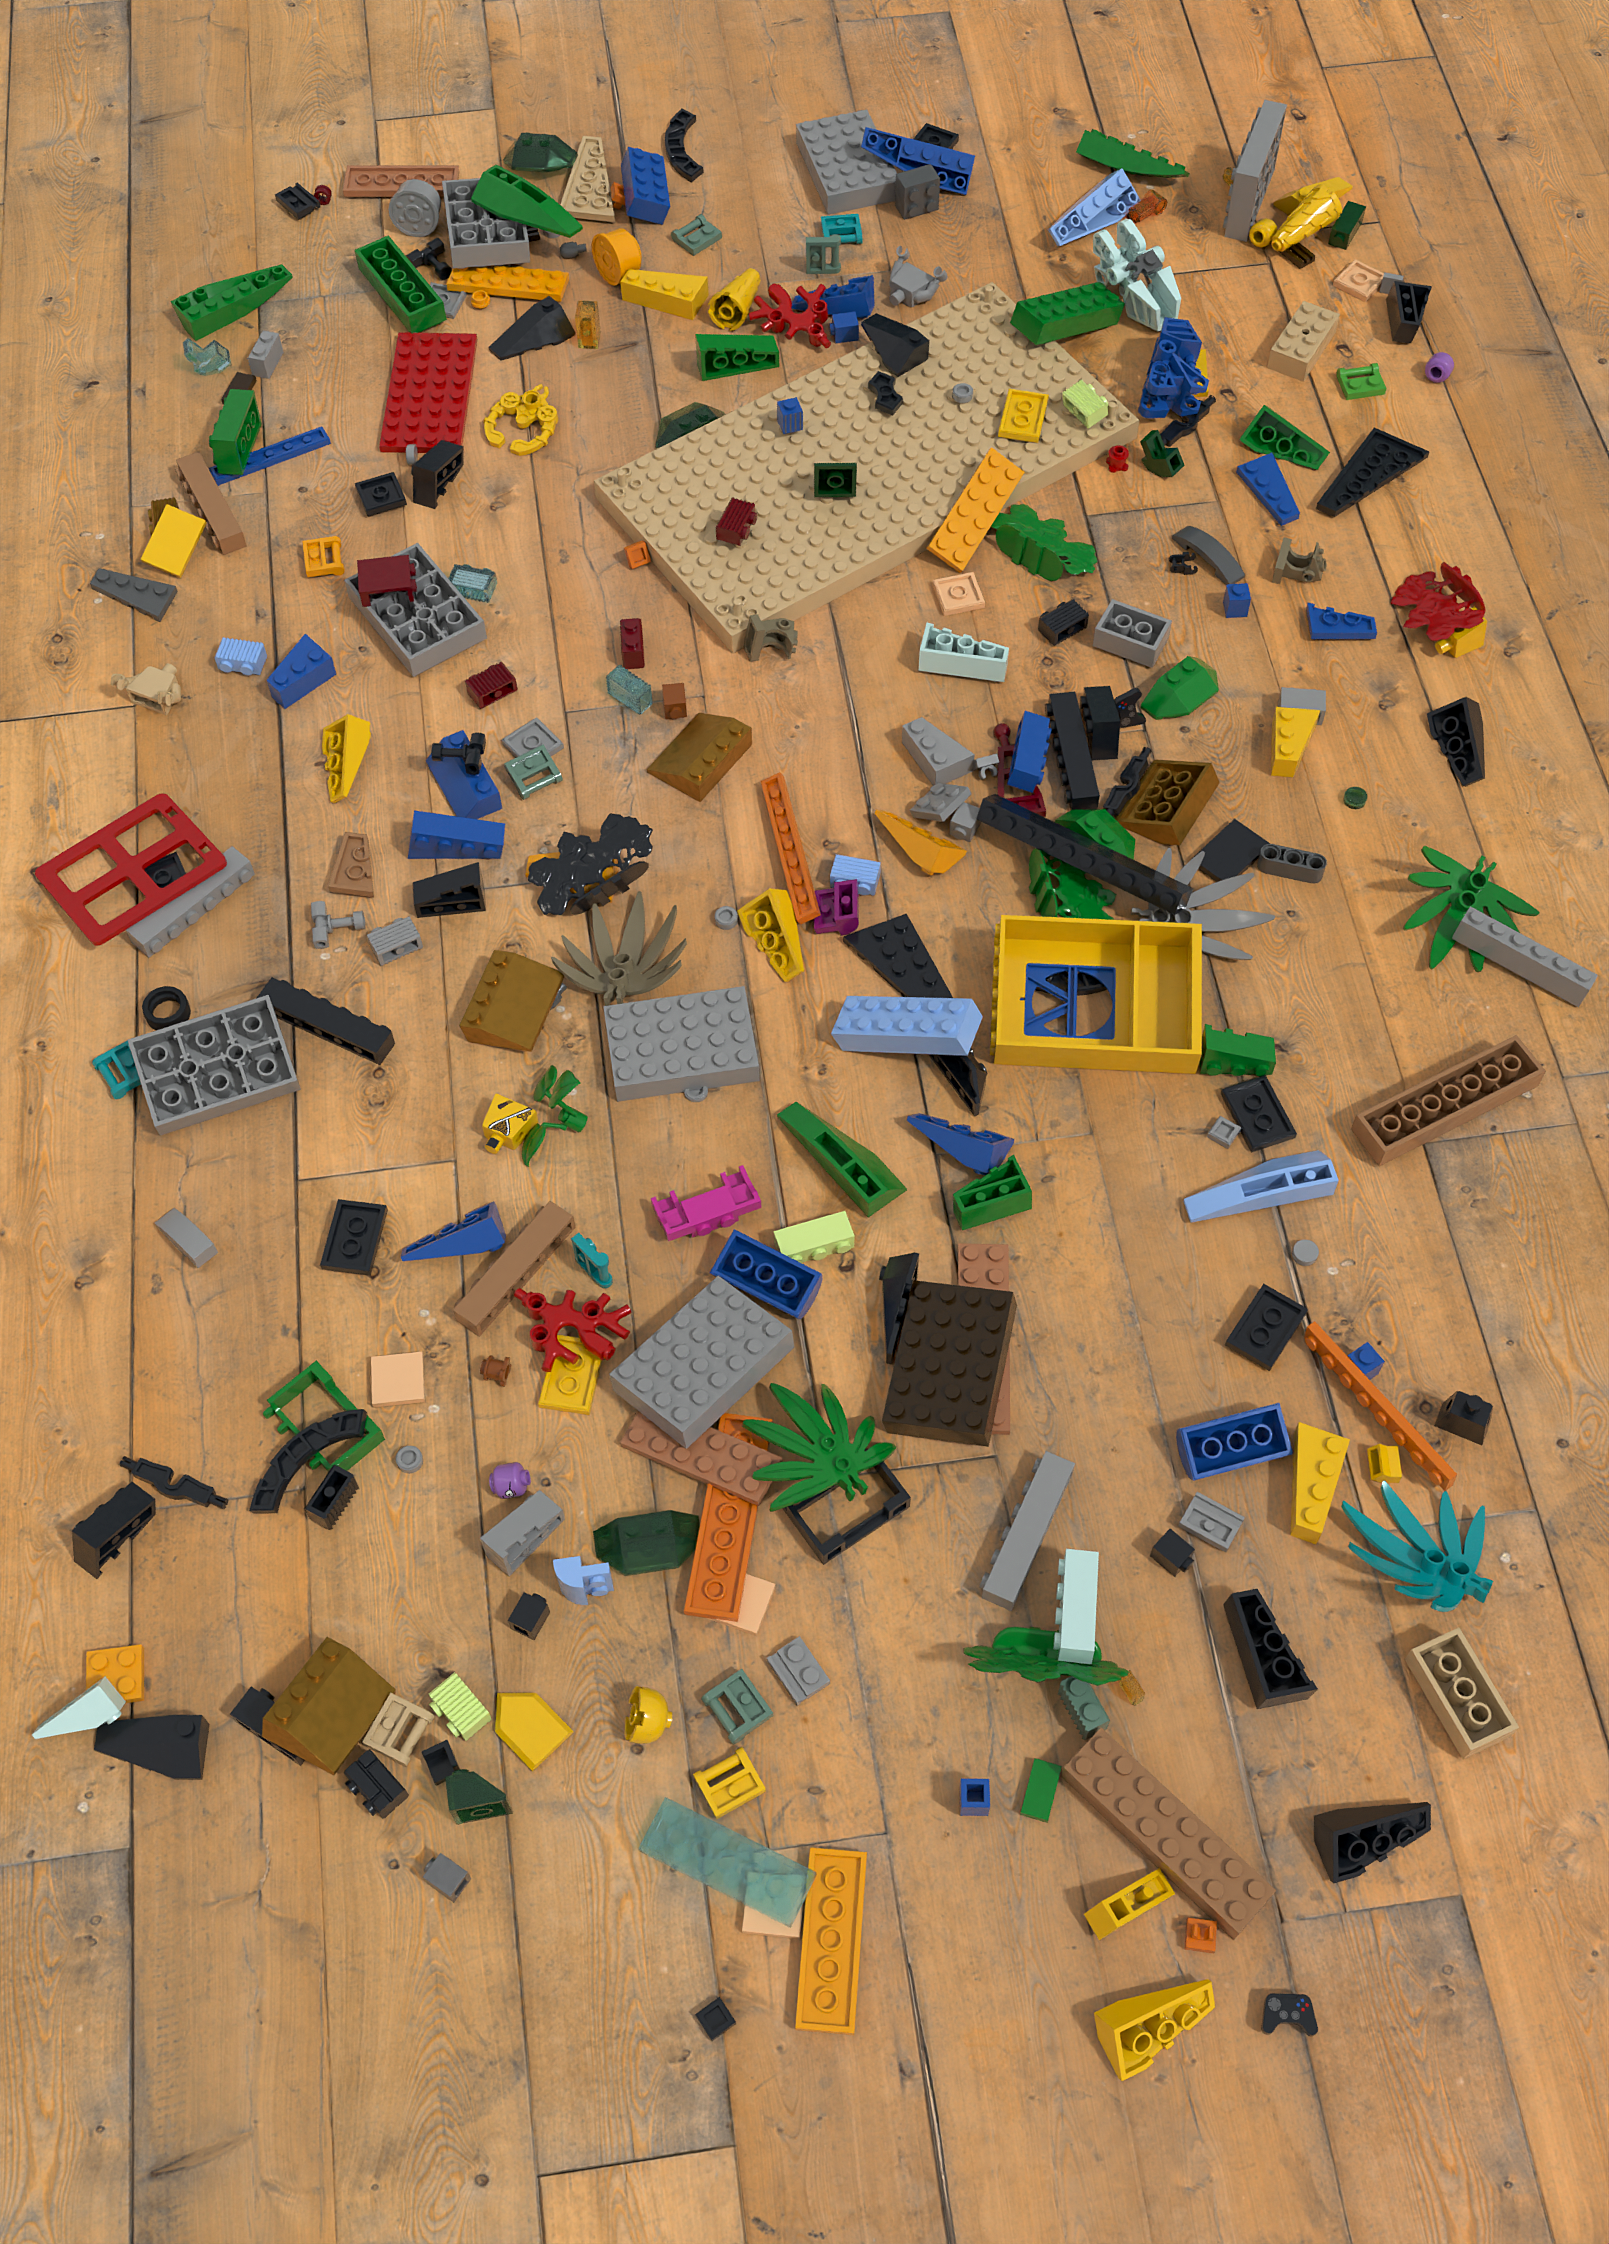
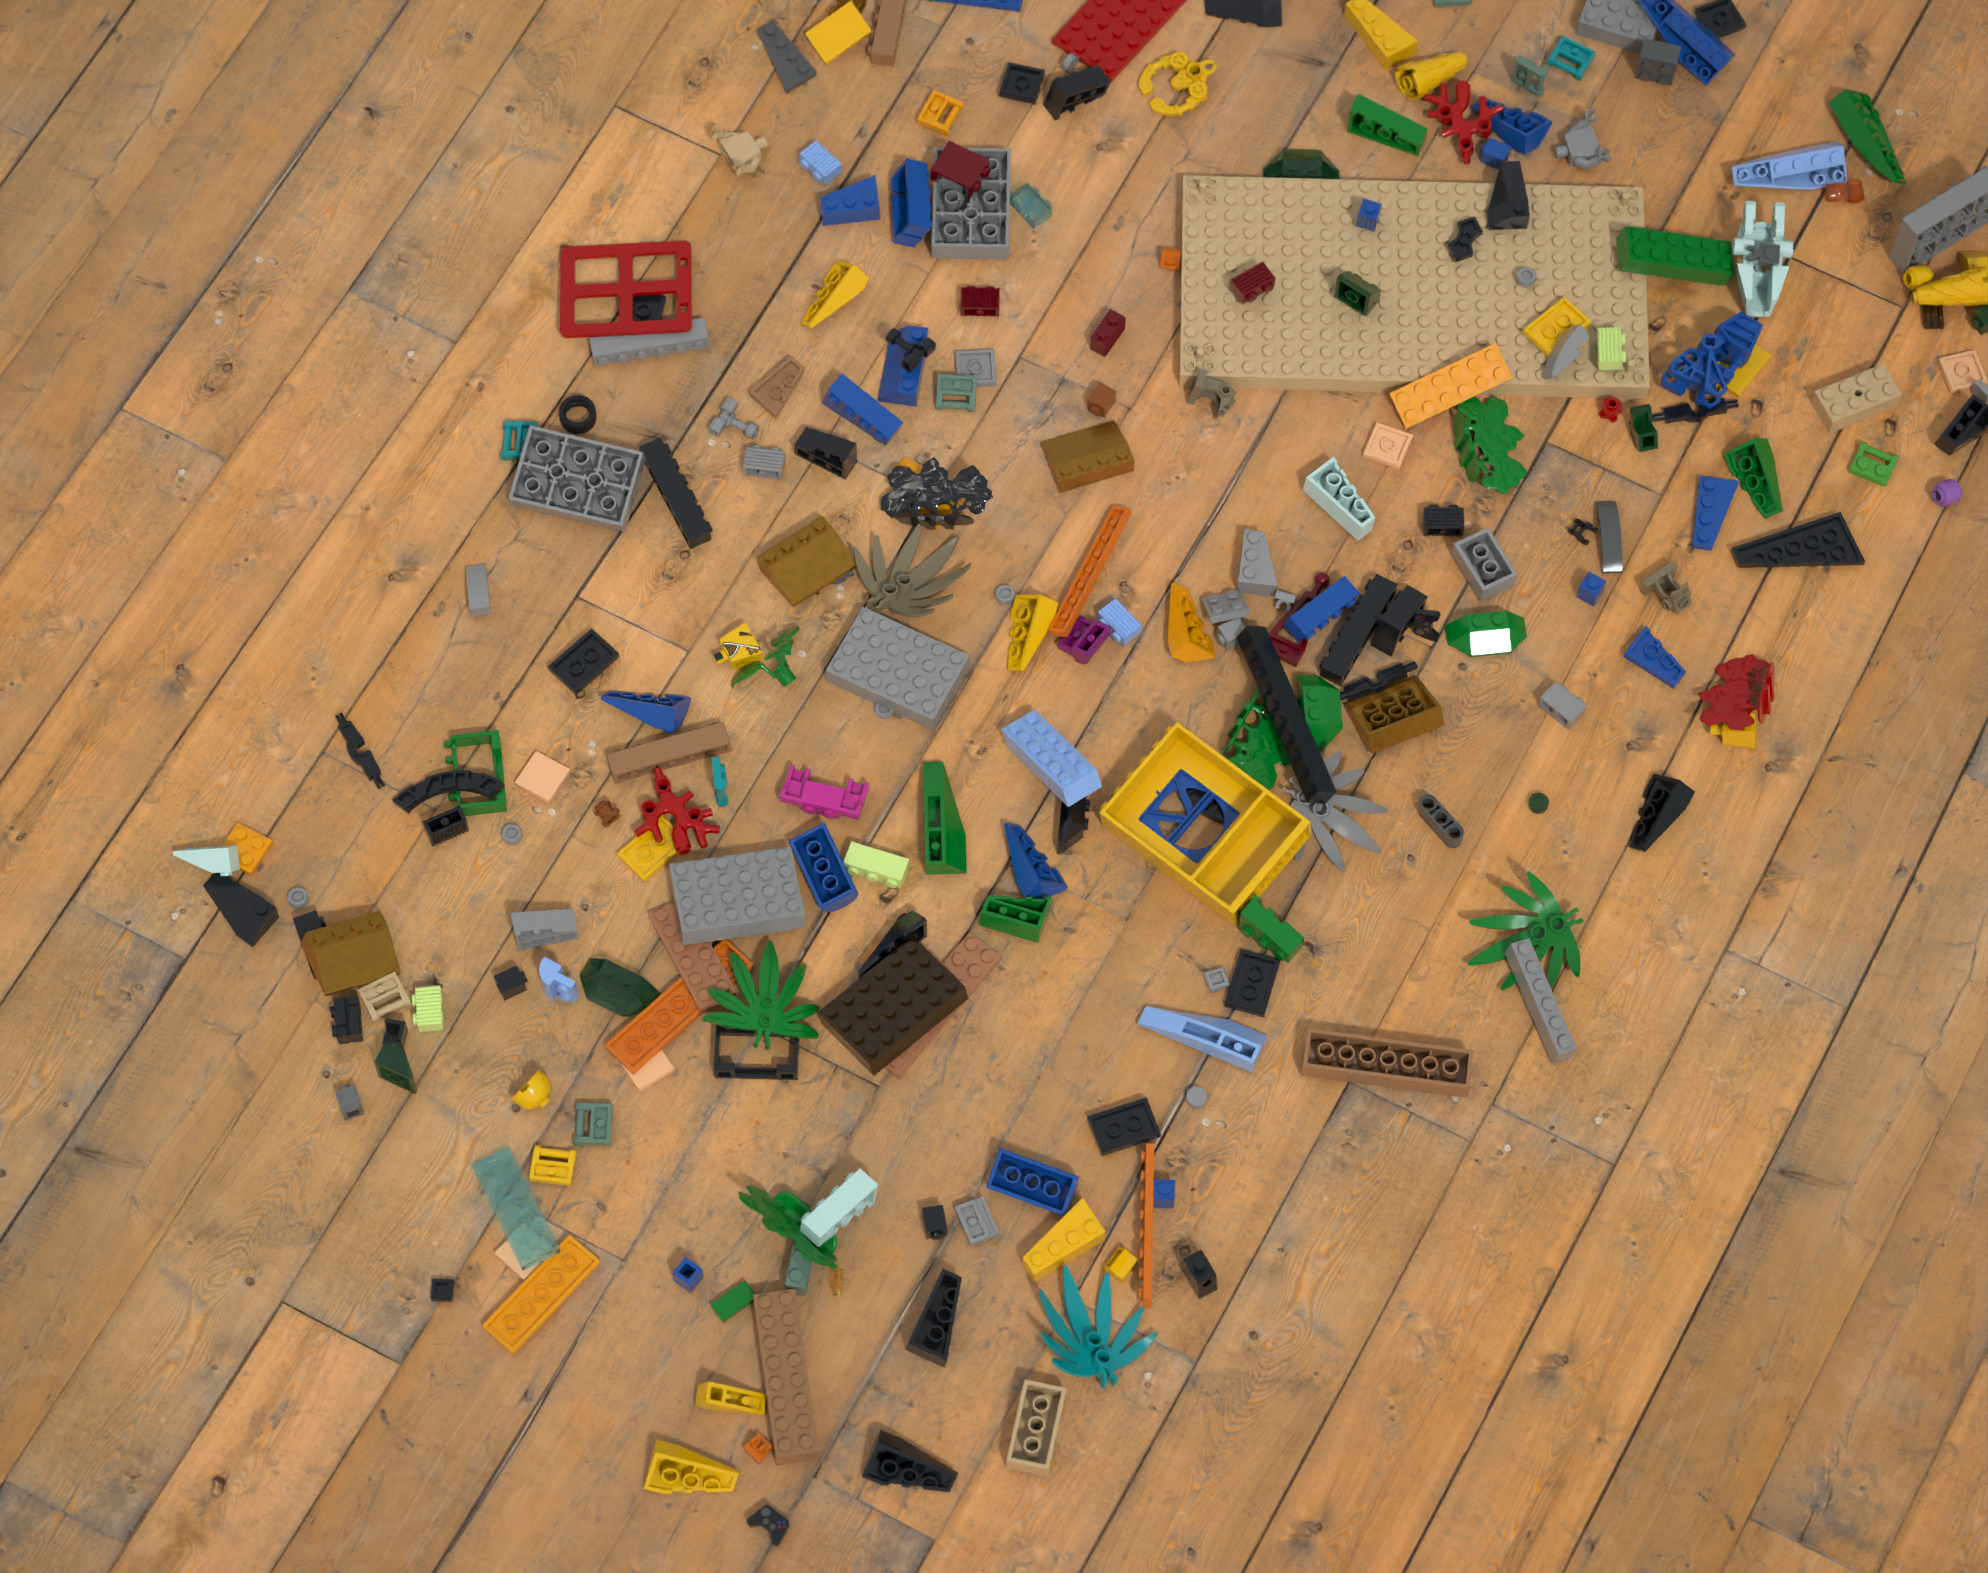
camera: 35 degrees right, 5 degrees up
(110, 1527) = (303, 753): black wedge -> none
(216, 1687) = (298, 897): none -> light grey tile
(358, 637) = (910, 213): none -> blue piece
(509, 1480) = (561, 890): medium lavender head -> none
(529, 1727) = (462, 1050): yellow tile -> none
(587, 324) = (1290, 27): clear yellow brick -> none
(629, 689) = (1075, 370): clear light blue brick -> none
(798, 1670) = (646, 1130): light grey plate -> none
(899, 958) = (1101, 709): black wing -> none
(1027, 1531) = (856, 1144): light grey brick -> none
(1051, 425) = (1565, 351): none -> light grey slope
(1231, 852) = (1405, 783): black tile -> none
(1290, 737) = (1527, 726): yellow wedge -> none

